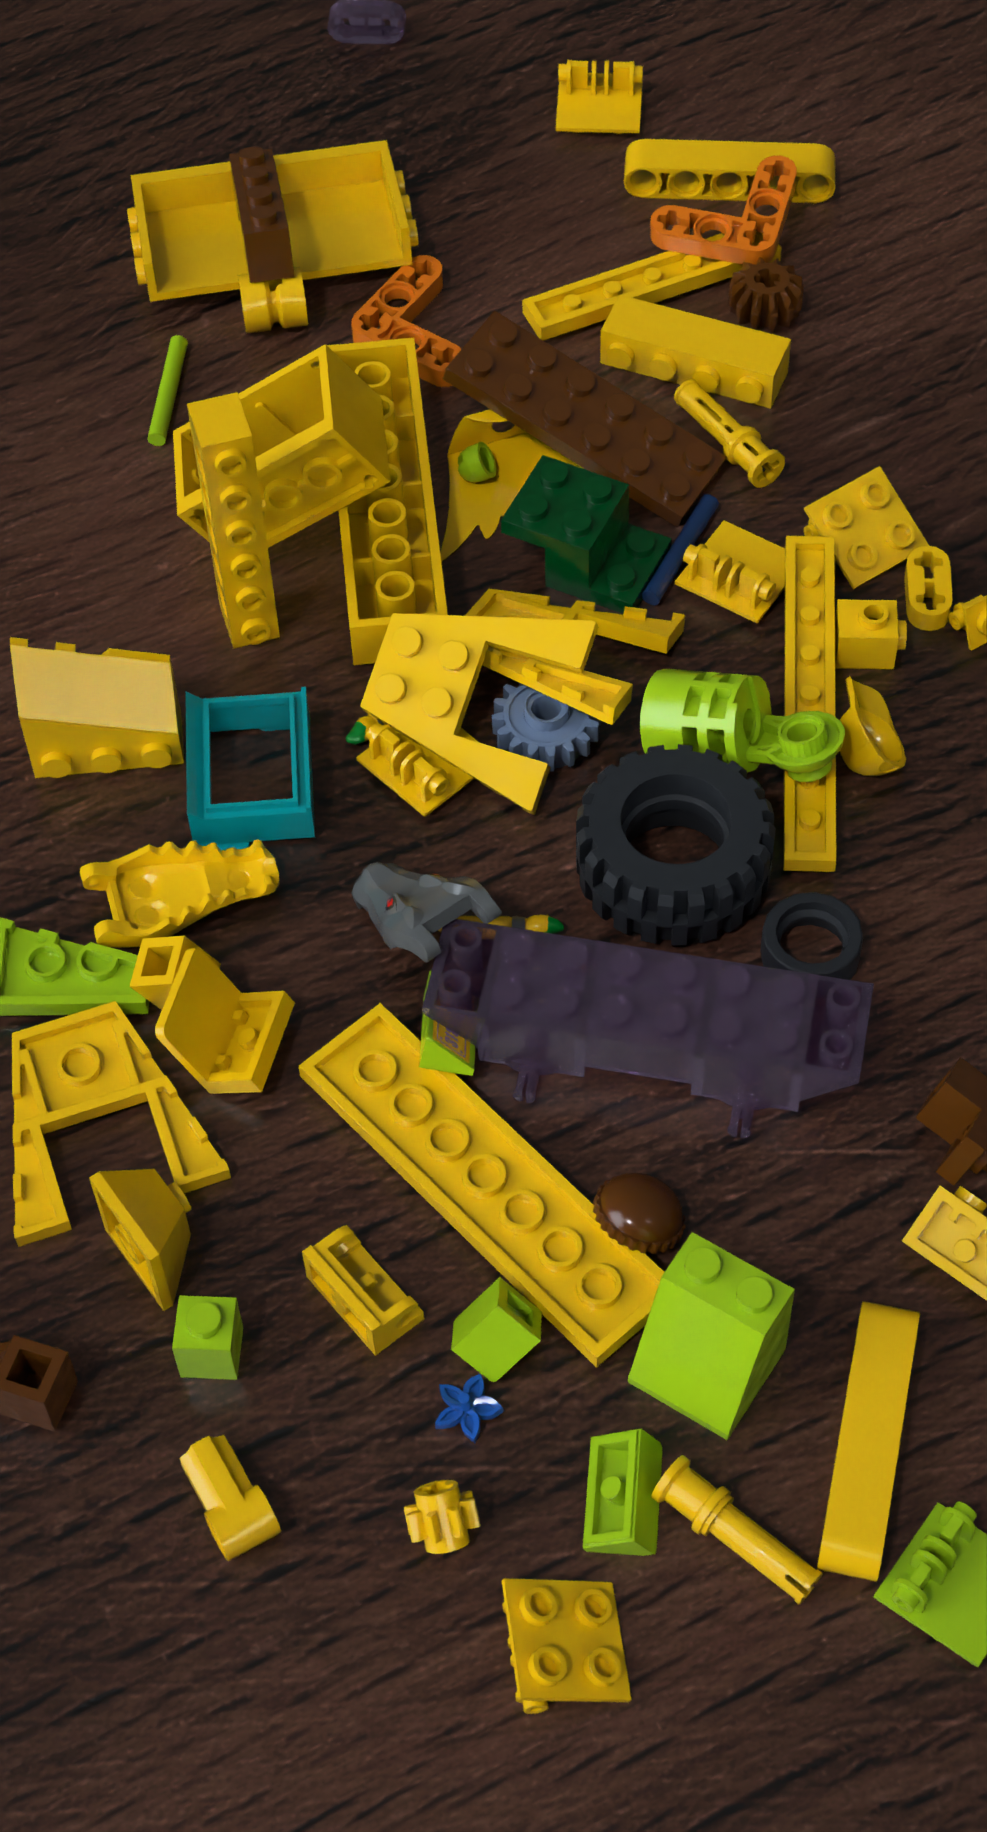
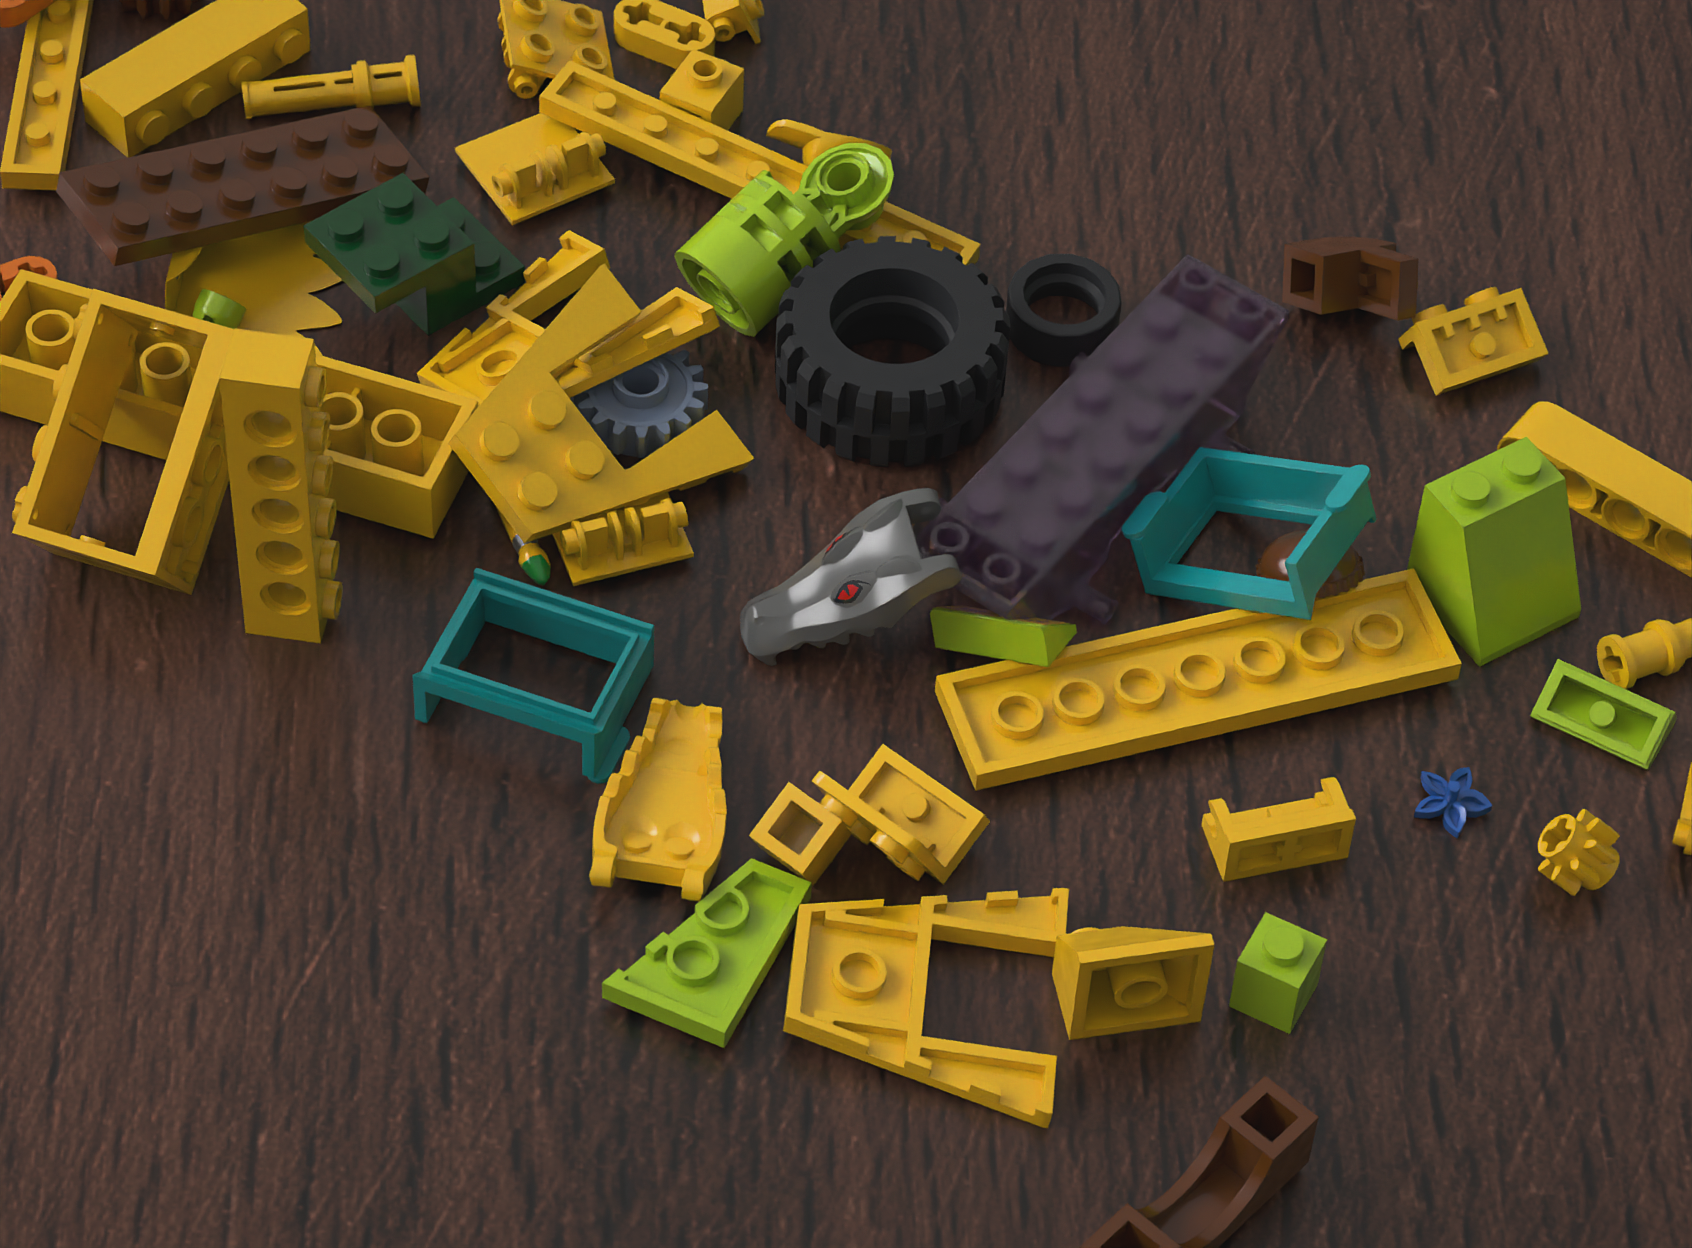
camera: 70 degrees left, 5 degrees down
(96, 709) = (382, 776): yellow wedge -> none
(234, 1508) = (1488, 1023): yellow piece -> none
(496, 1330) = (1384, 734): lime panel -> none
(611, 1095) = (1214, 480): none -> teal piece
(674, 558) = (453, 186): dark blue bar -> none

